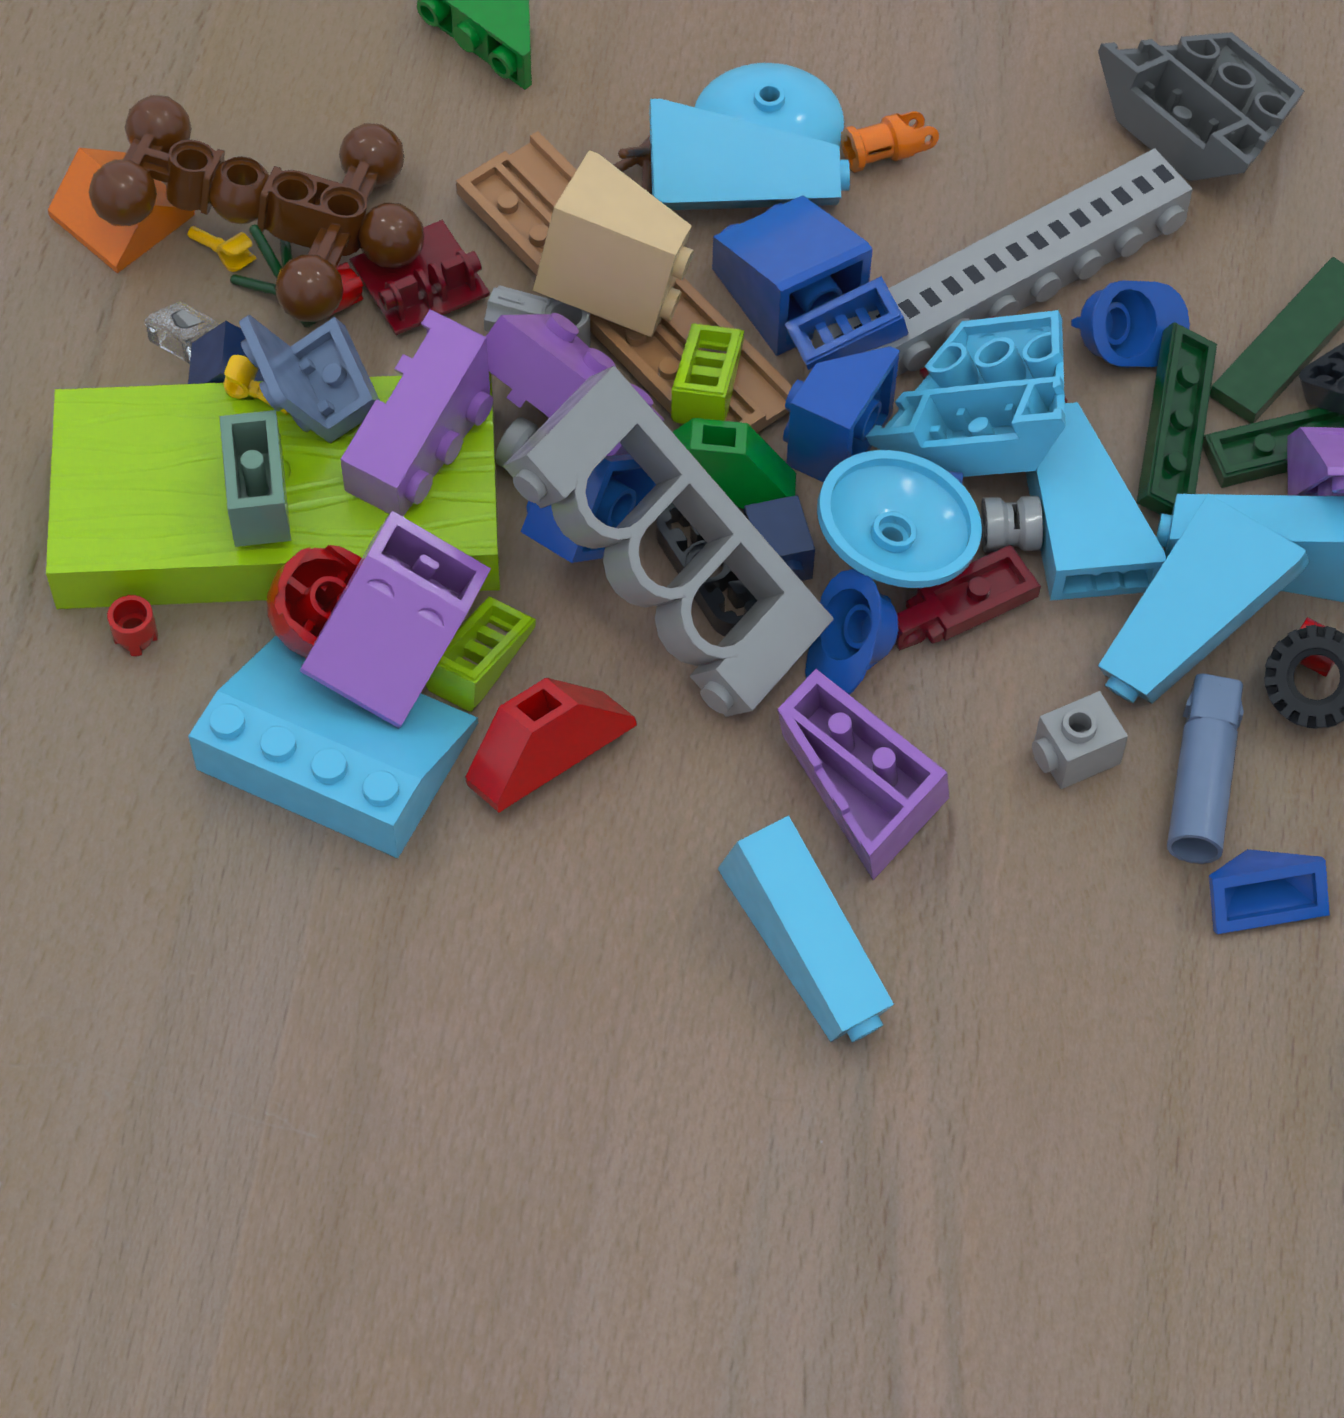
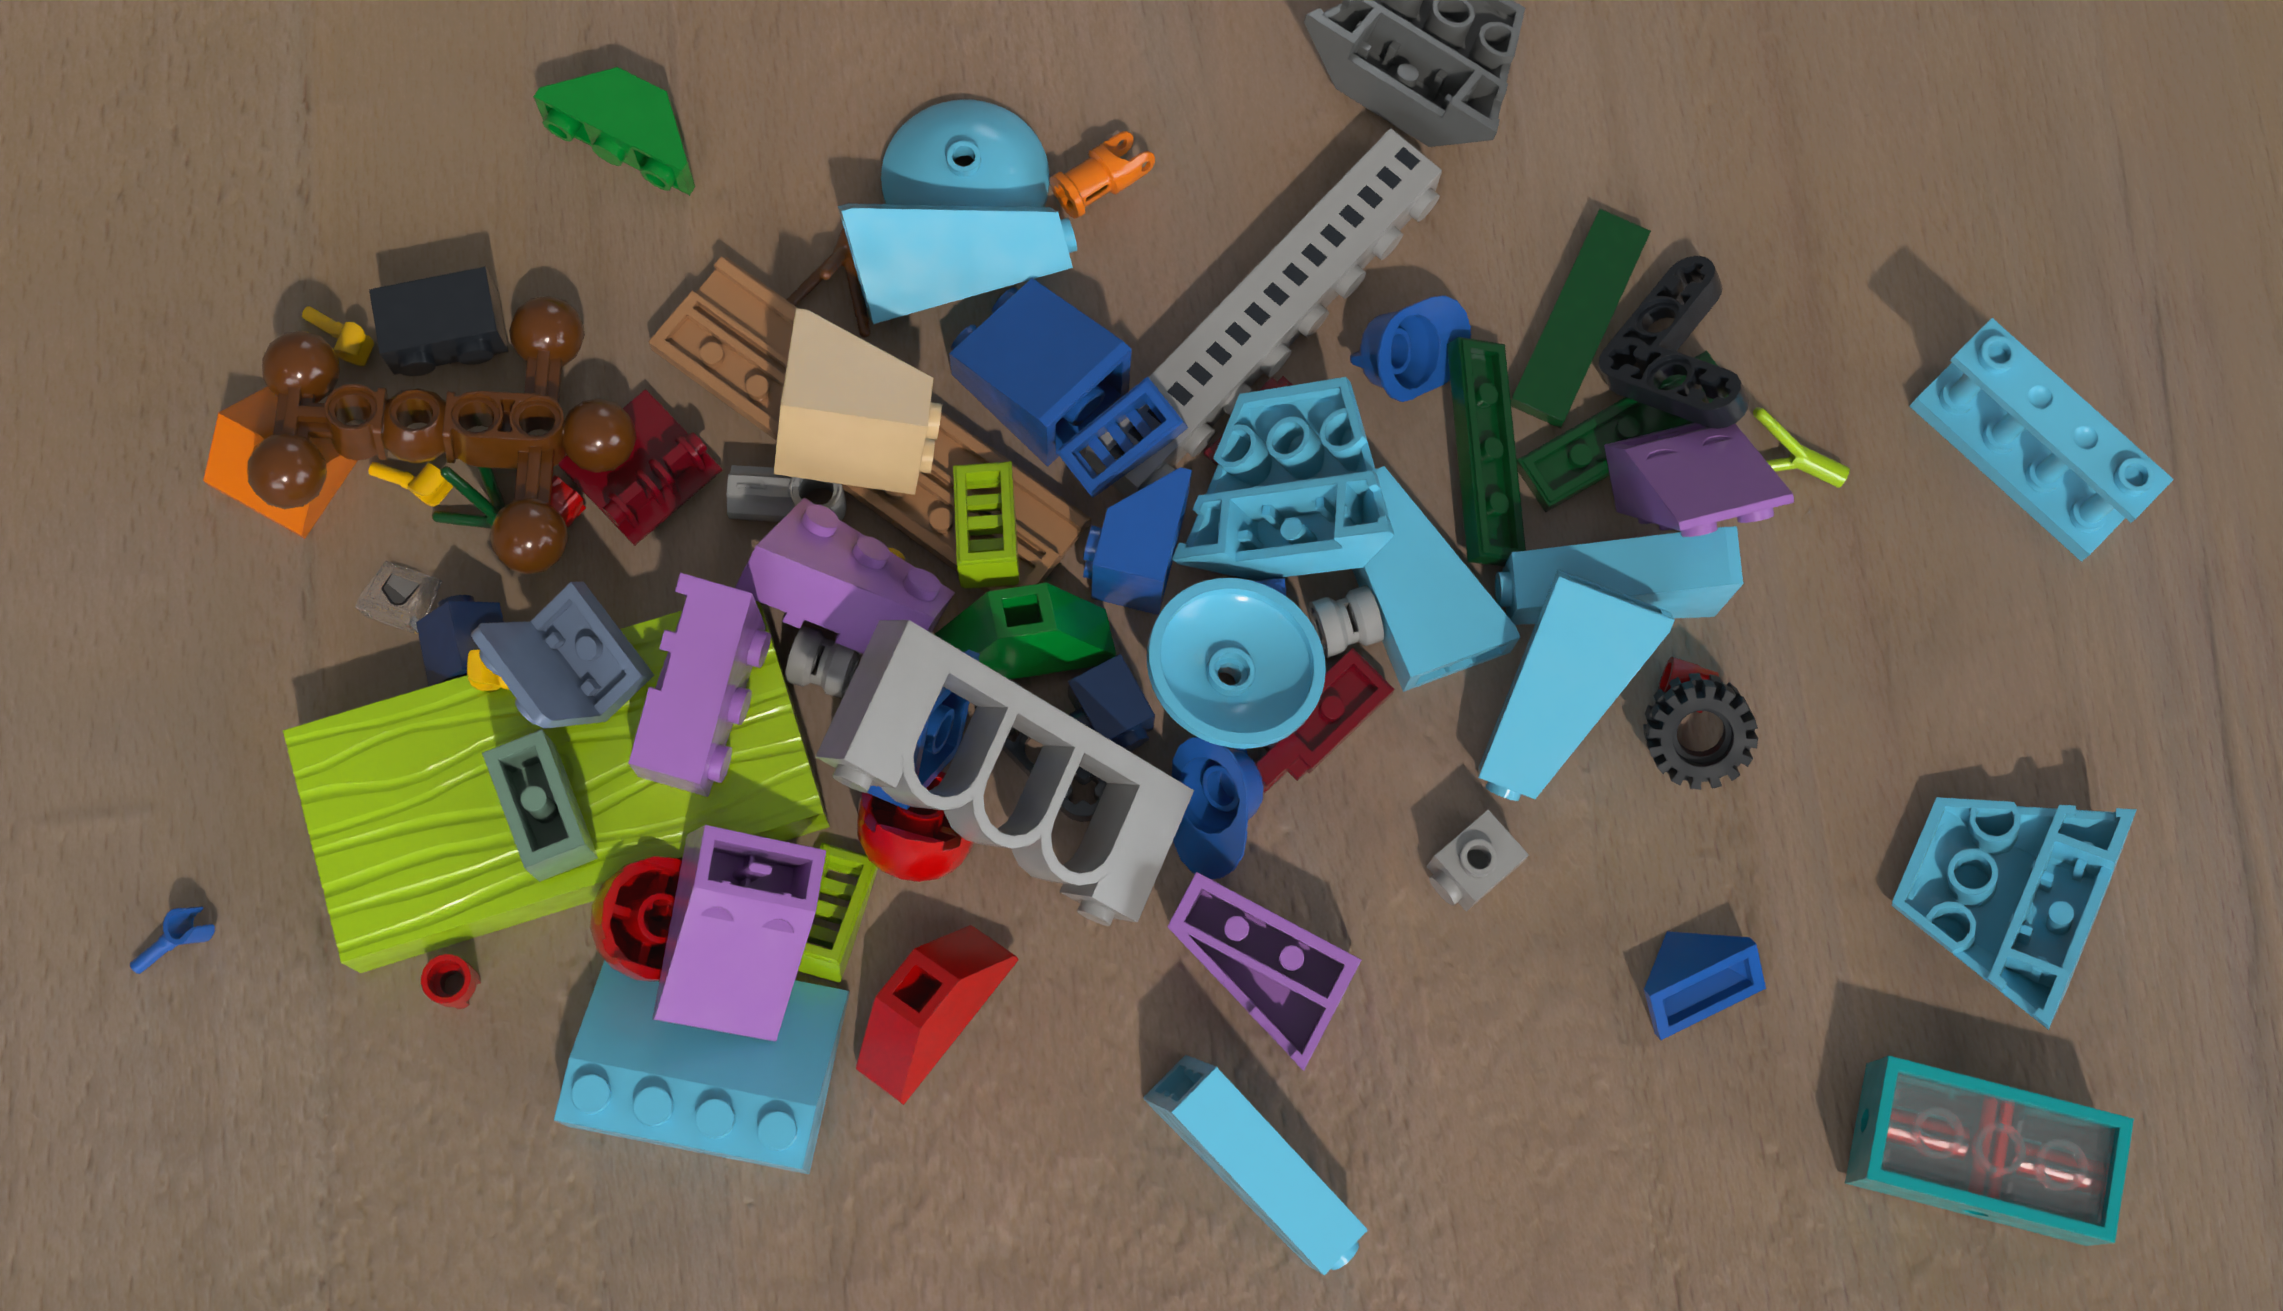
camera: 20 degrees left, 15 degrees up
(205, 130) = (352, 341): none -> yellow hand
(284, 126) = (438, 322): none -> black brick
(570, 596) = (909, 842): none -> red cylinder
(1205, 769) = (1609, 858): sand blue piece -> none

